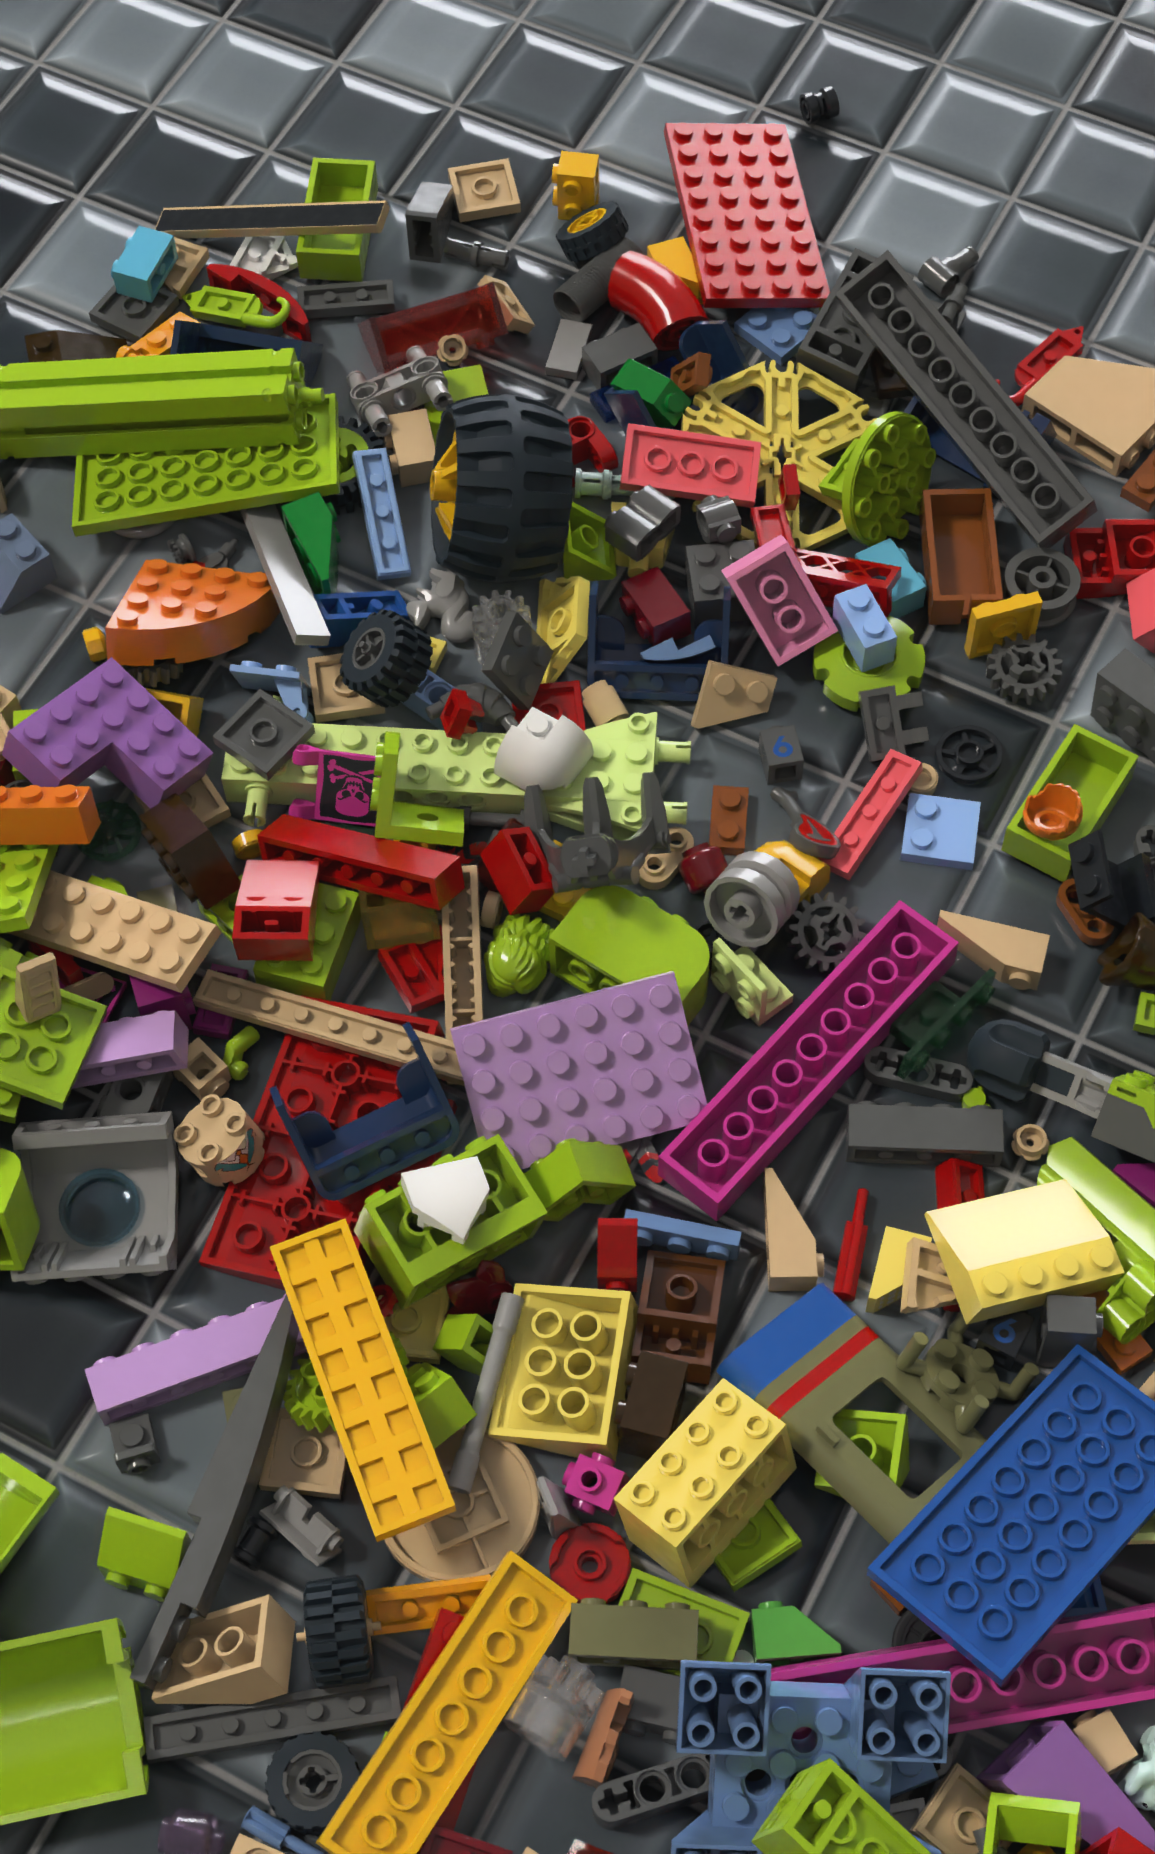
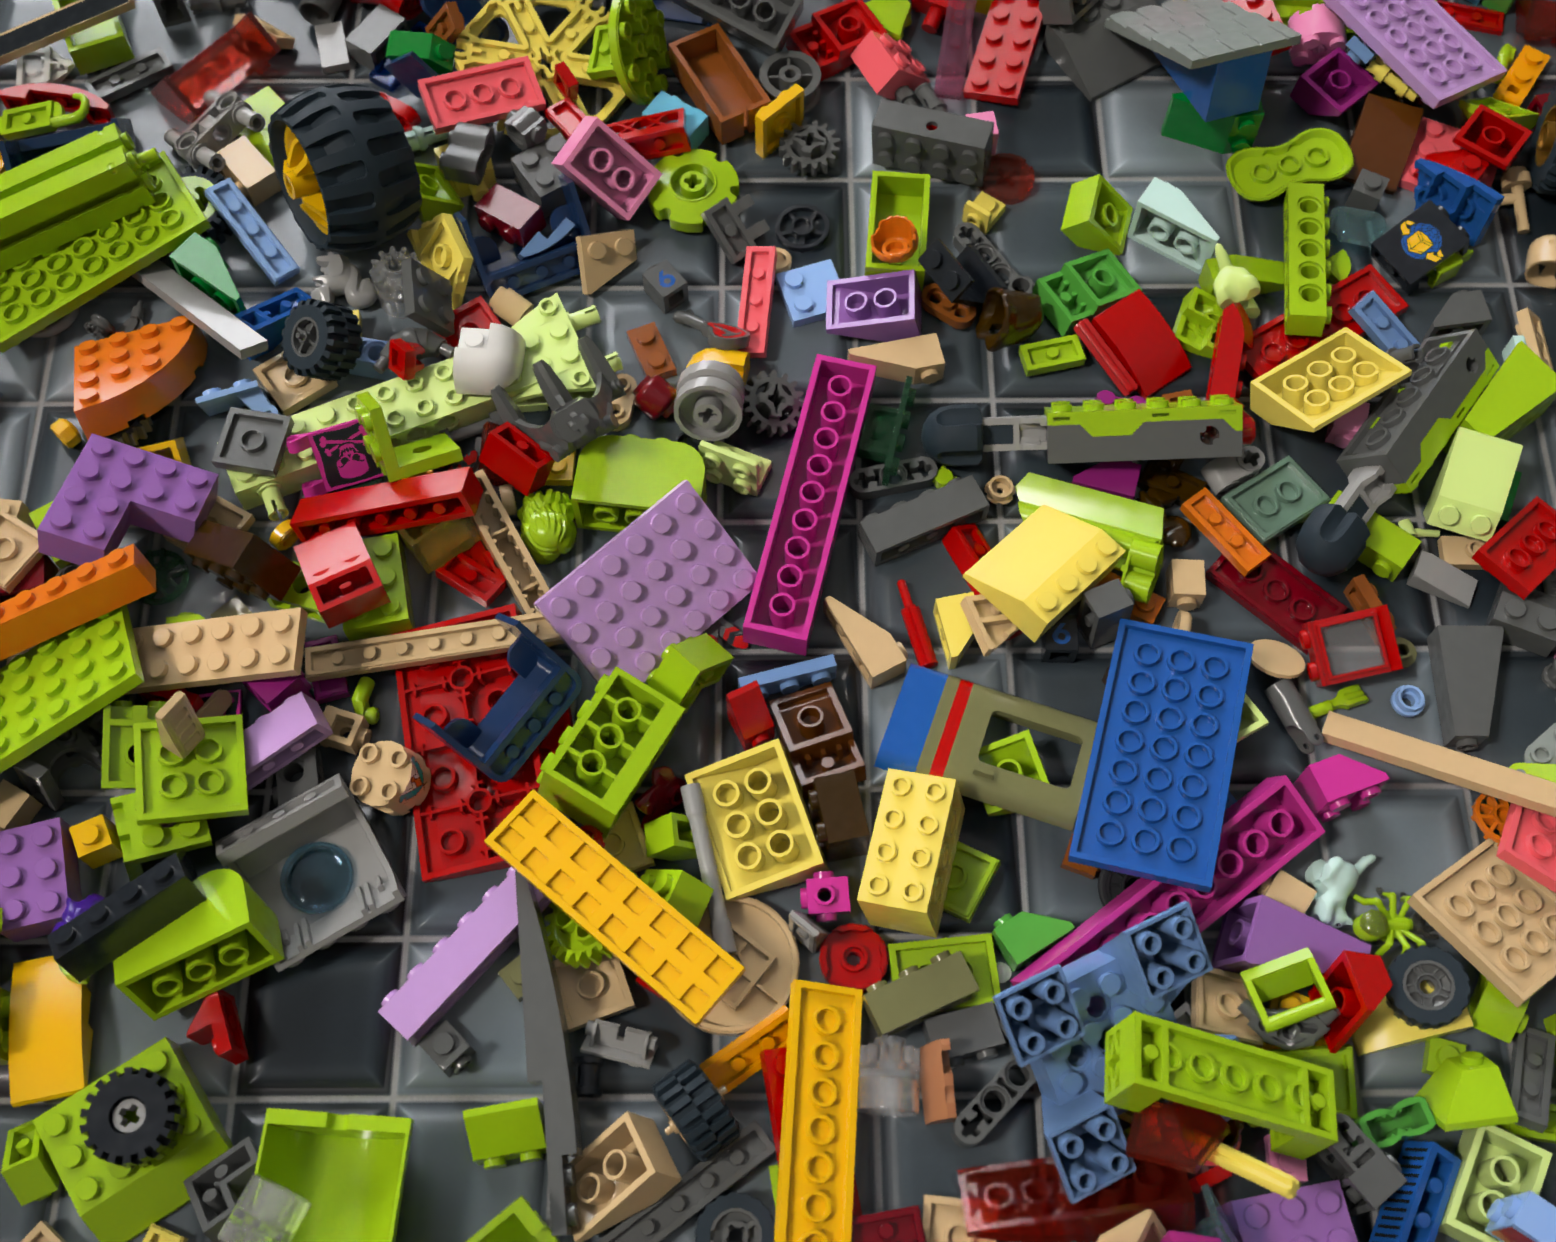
camera: 30 degrees left, 5 degrees up
(447, 1195) = (605, 732): white slope -> none
(457, 342) = (239, 75): tan plate -> none
(864, 628) = (682, 163): light blue brick -> none
(953, 1358) = (1048, 681): olive plate -> none
(999, 877) = (875, 306): none -> medium lavender slope

